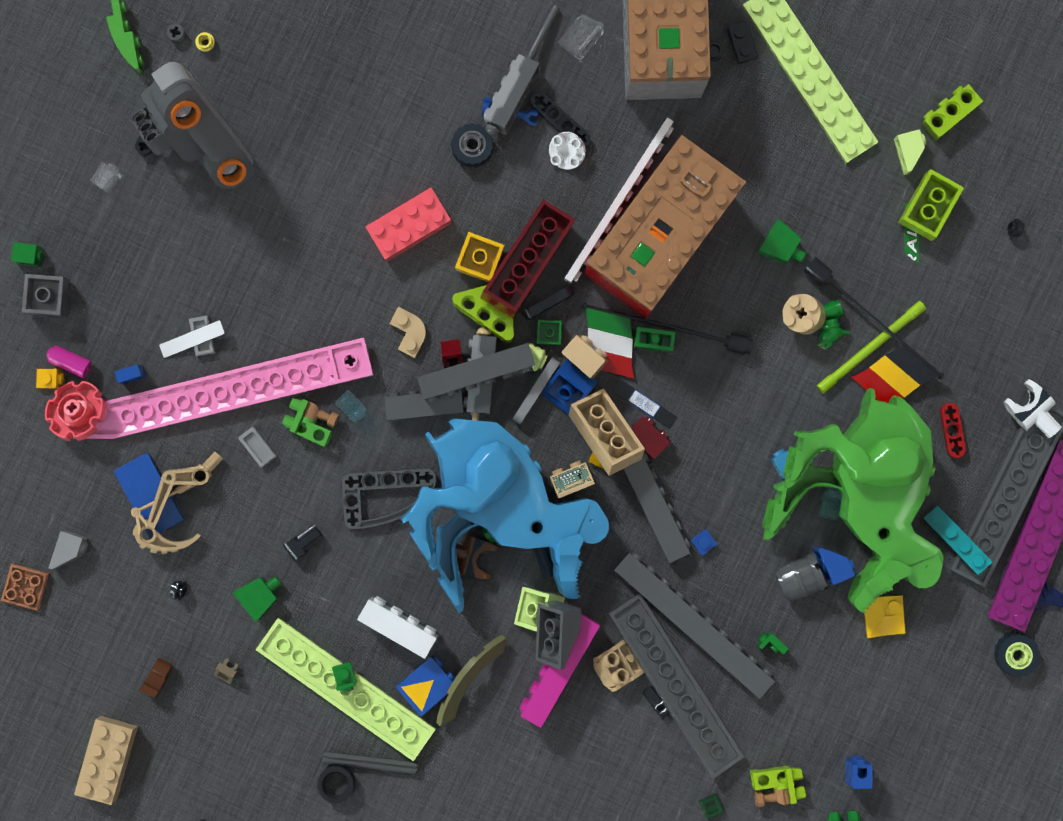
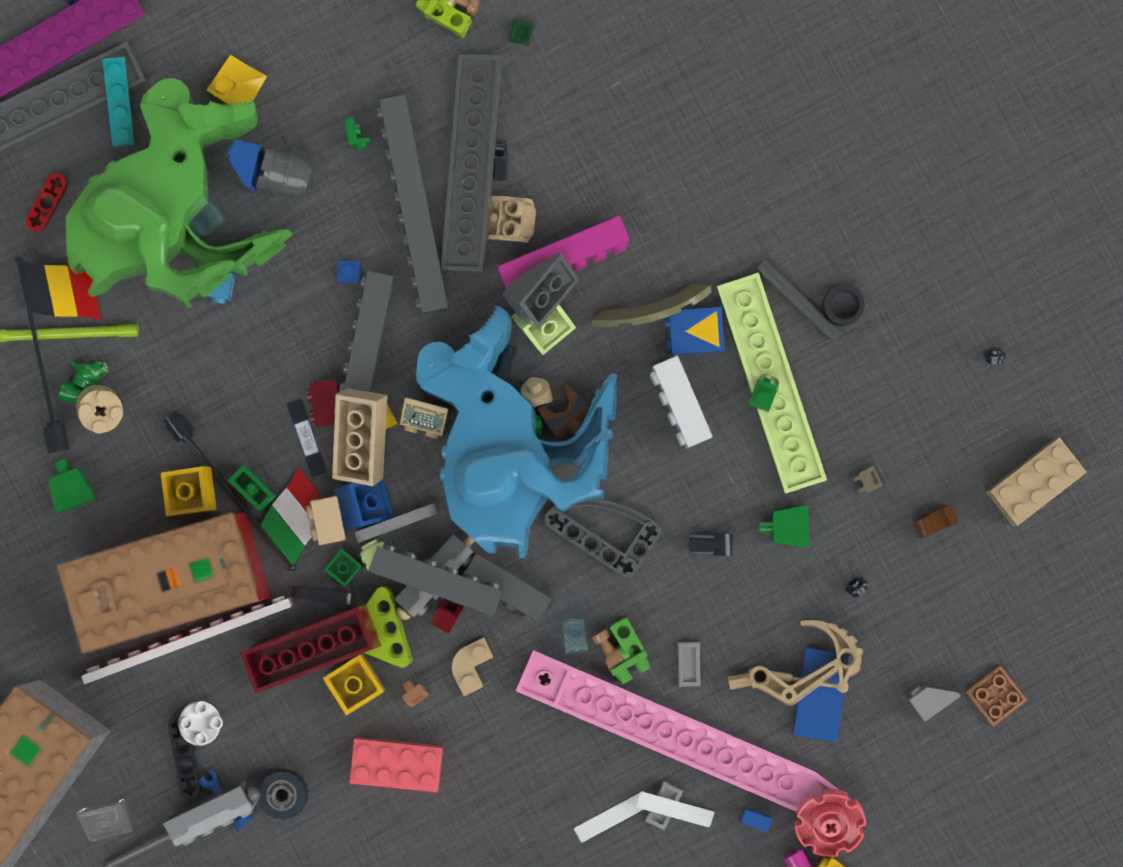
camera: 140 degrees left, 0 degrees up
(234, 298) = (608, 819): none -> white sticker
(433, 282) = (414, 693): none -> nougat tile
(506, 557) = (536, 391): none -> tan piece
(697, 303) = (188, 491): none -> yellow brick

